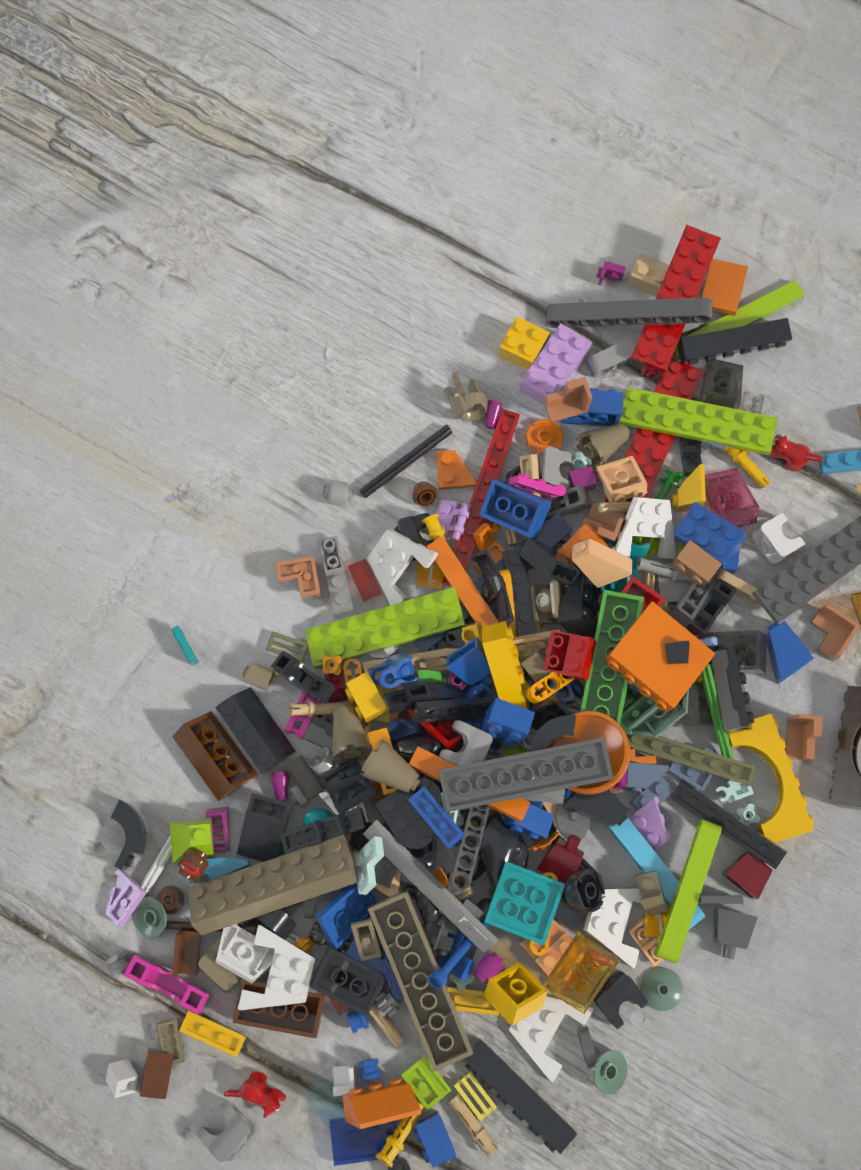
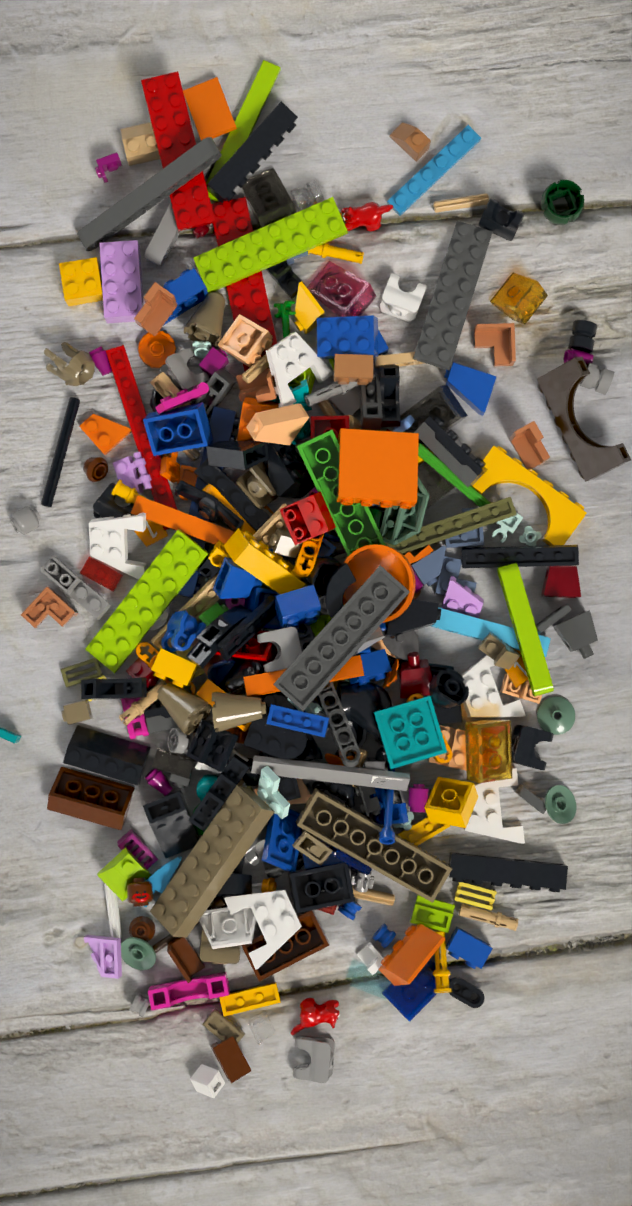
camera: 40 degrees left, 10 degrees up
(134, 831) = (75, 901): black arch -> none
(327, 660) = (126, 667): light orange plate -> none
(677, 652) = (389, 455): black slope -> none

